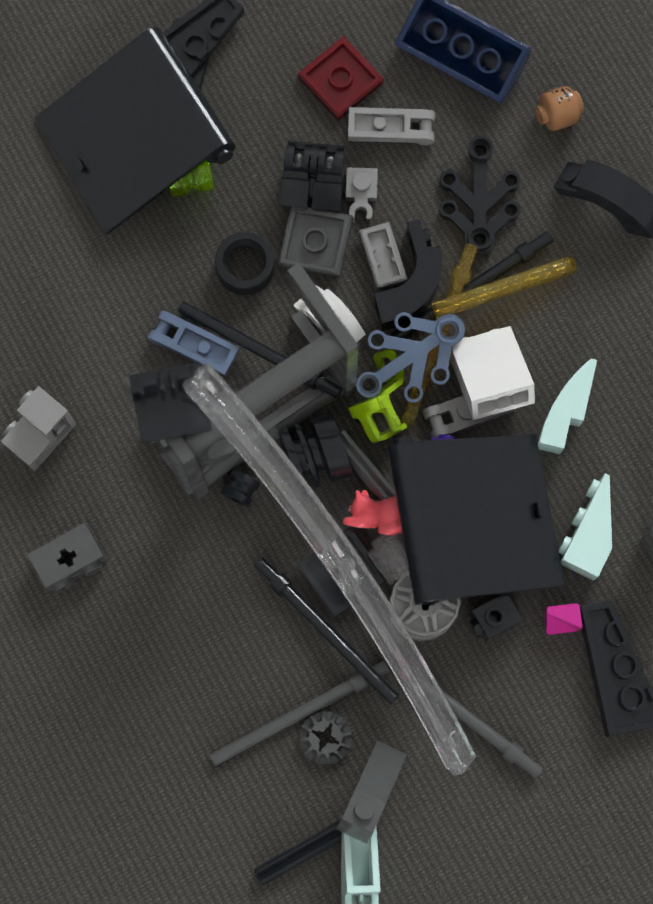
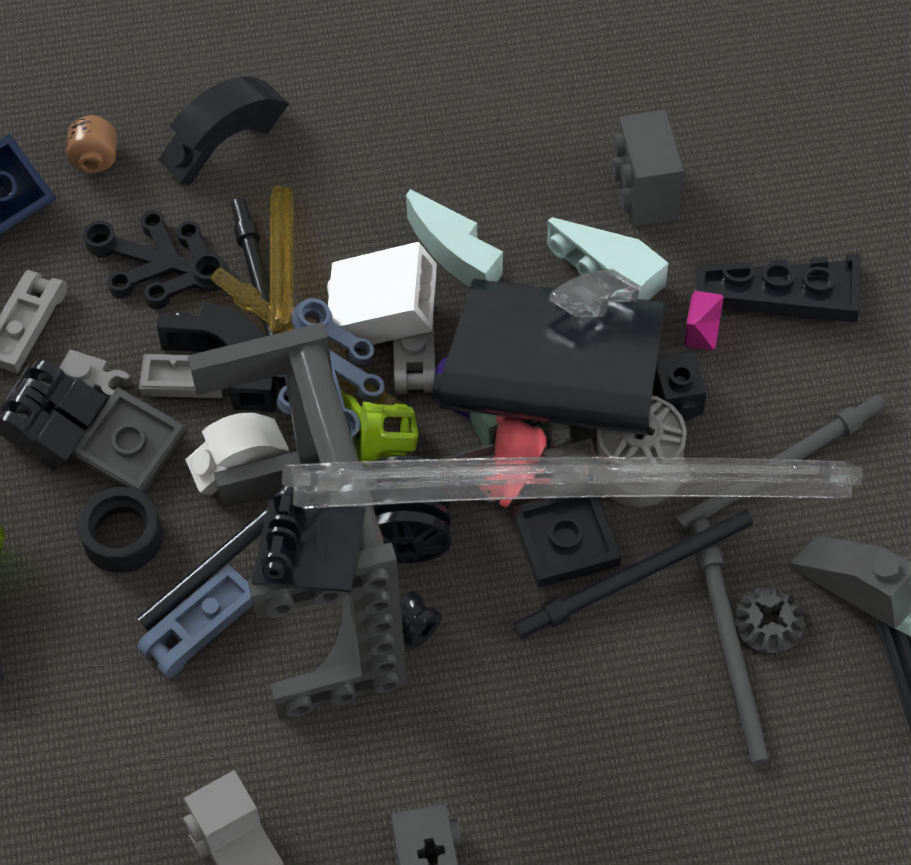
camera: 70 degrees left, 20 degrees down
(539, 527) = (593, 291): none -> clear slope

